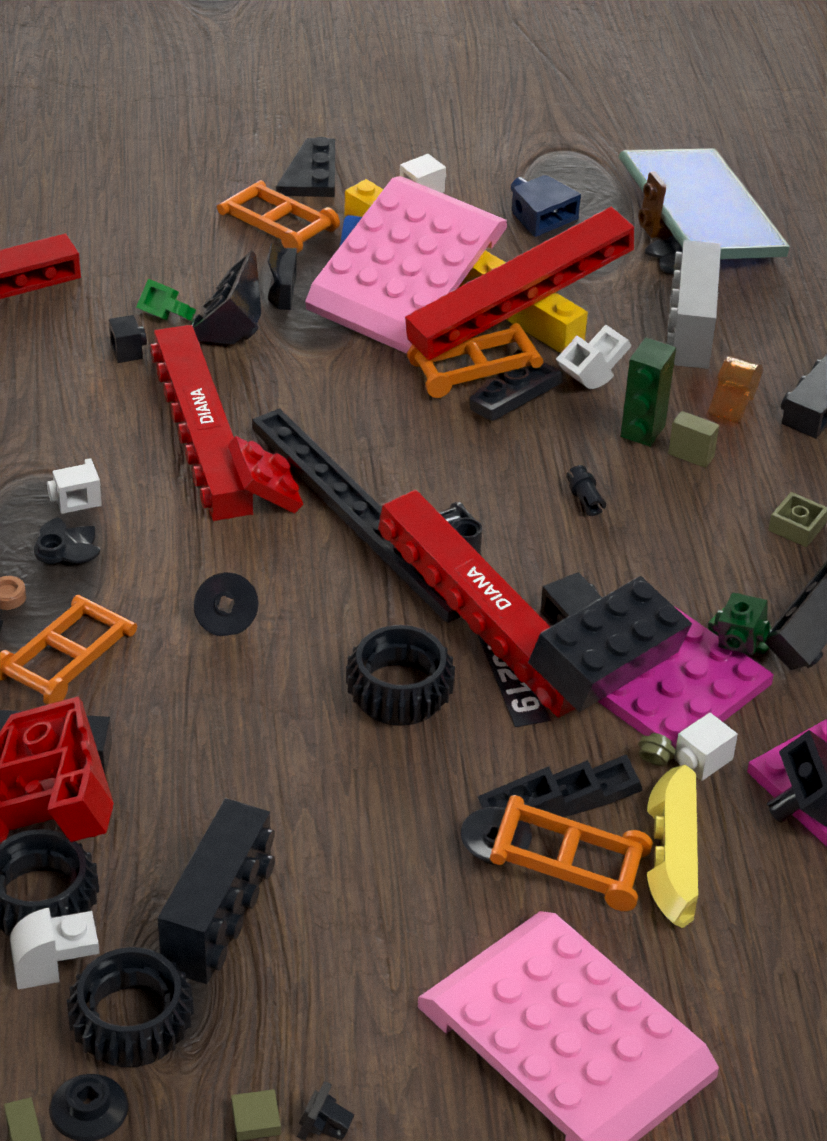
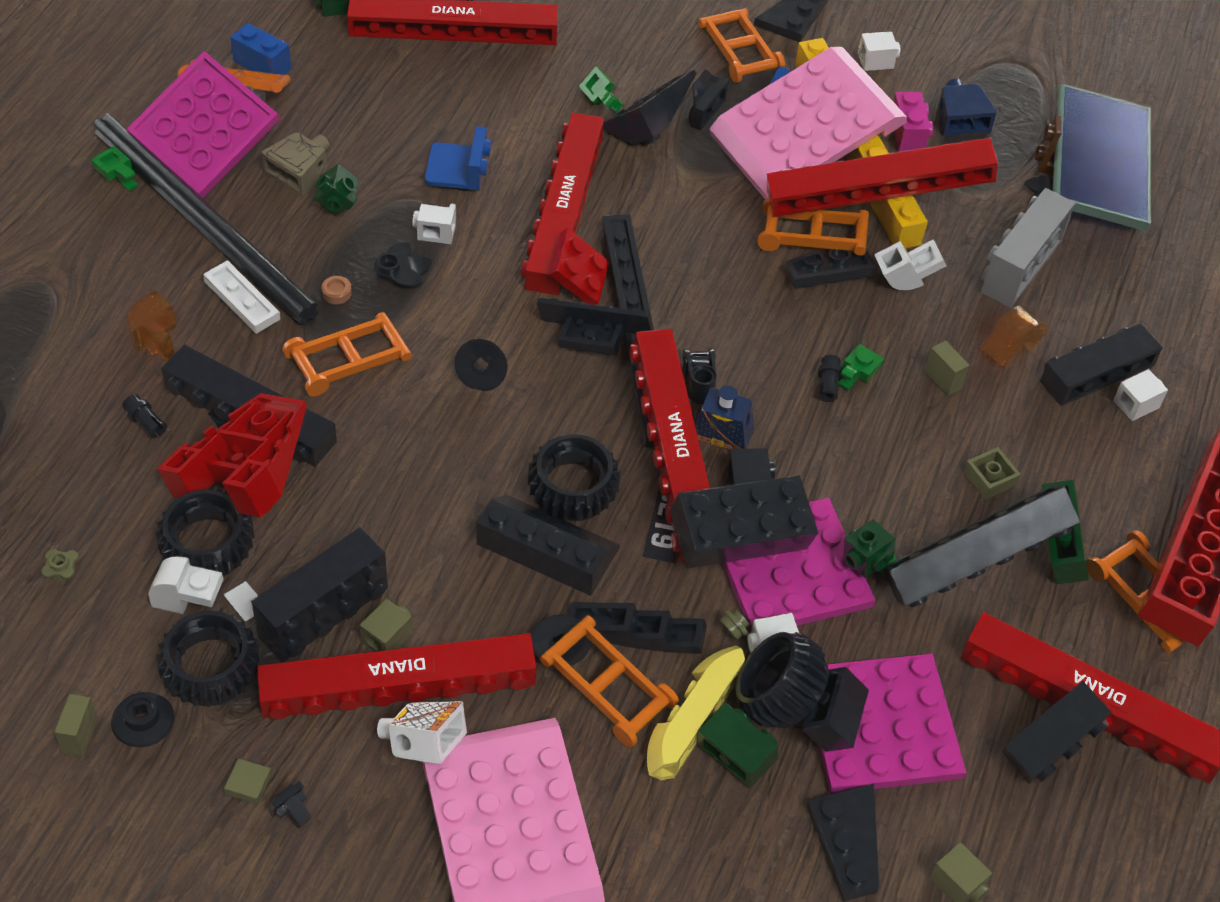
camera: 25 degrees right, 10 degrees up
(62, 423) = (459, 164): none -> blue bracket
(119, 936) = (241, 599): none -> white sticker
(126, 338) = (552, 111): black plate -> none
(304, 899) = (386, 627): none -> olive brick
(318, 524) = (592, 326): none -> black bracket
(344, 942) = (396, 676): none -> red brick
(413, 753) = (545, 543): none -> black slope
(419, 976) = (425, 730): none -> white torso
(516, 236) = (918, 127): none -> dark pink brick
(518, 557) = (725, 419): none -> dark blue torso
(607, 468) = (860, 365): none -> green plate
(647, 391) = (925, 313): dark green brick -> none
(742, 856) = (738, 744): none -> dark green brick
(775, 781) = (782, 680): none -> black gear

